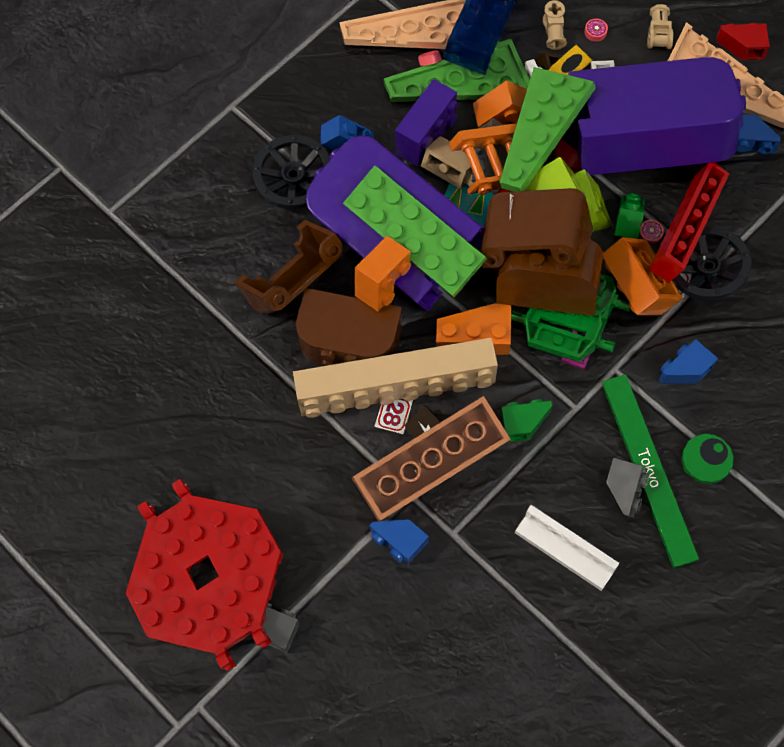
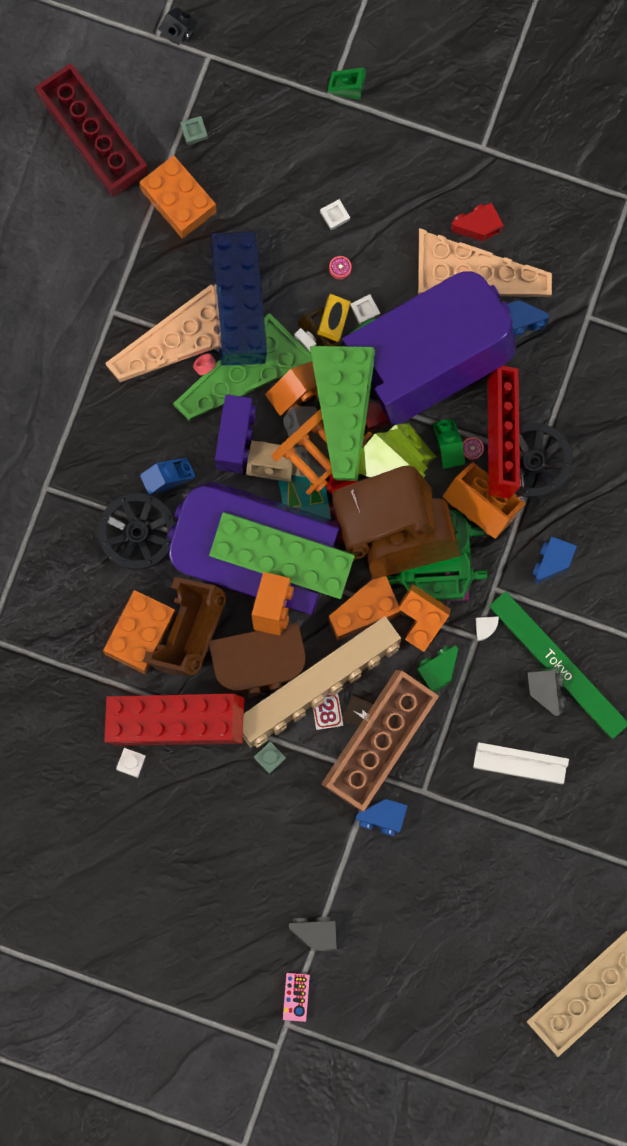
camera: 30 degrees left, 10 degrees up
(178, 378) = (131, 762): none -> white plate
(220, 685) = (296, 997): none -> tile
(225, 608) = (272, 939): red plate -> none
(237, 348) = (174, 719): none -> red brick
(249, 253) = (139, 630): none -> orange brick
(314, 432) = (269, 757): none -> sand green plate
(536, 359) = (428, 616): none -> orange brick
(554, 22) = (302, 281): tan connector -> none
(590, 401) = (485, 627): none -> white tile
(660, 29) = (398, 245): tan connector -> none
(707, 459) = (602, 634): green tile -> none

